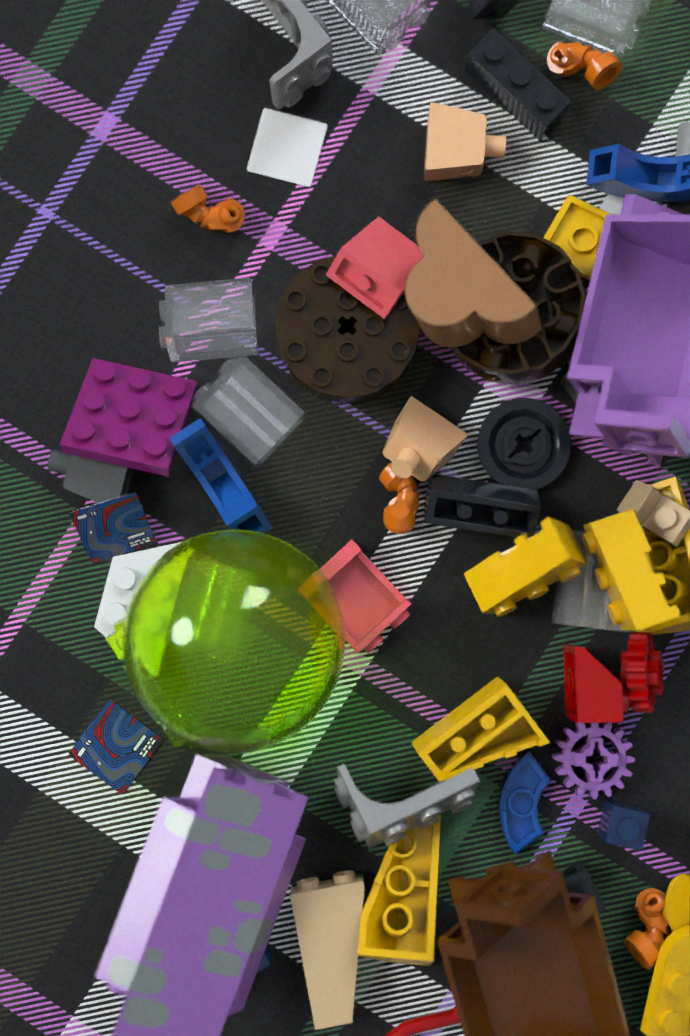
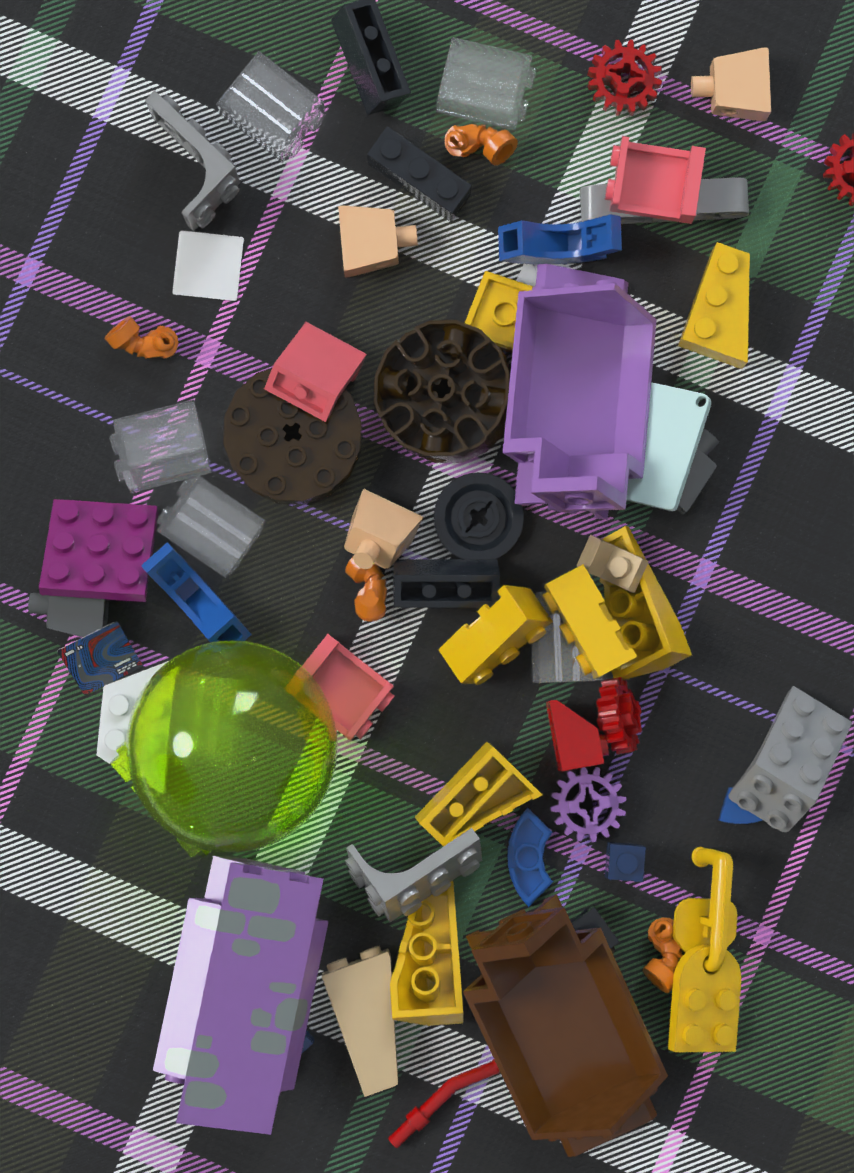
camera: 15 degrees left, 0 degrees up
(115, 747) = (134, 866): sticker -> none
(461, 290) = (388, 387): medium nougat brick -> none

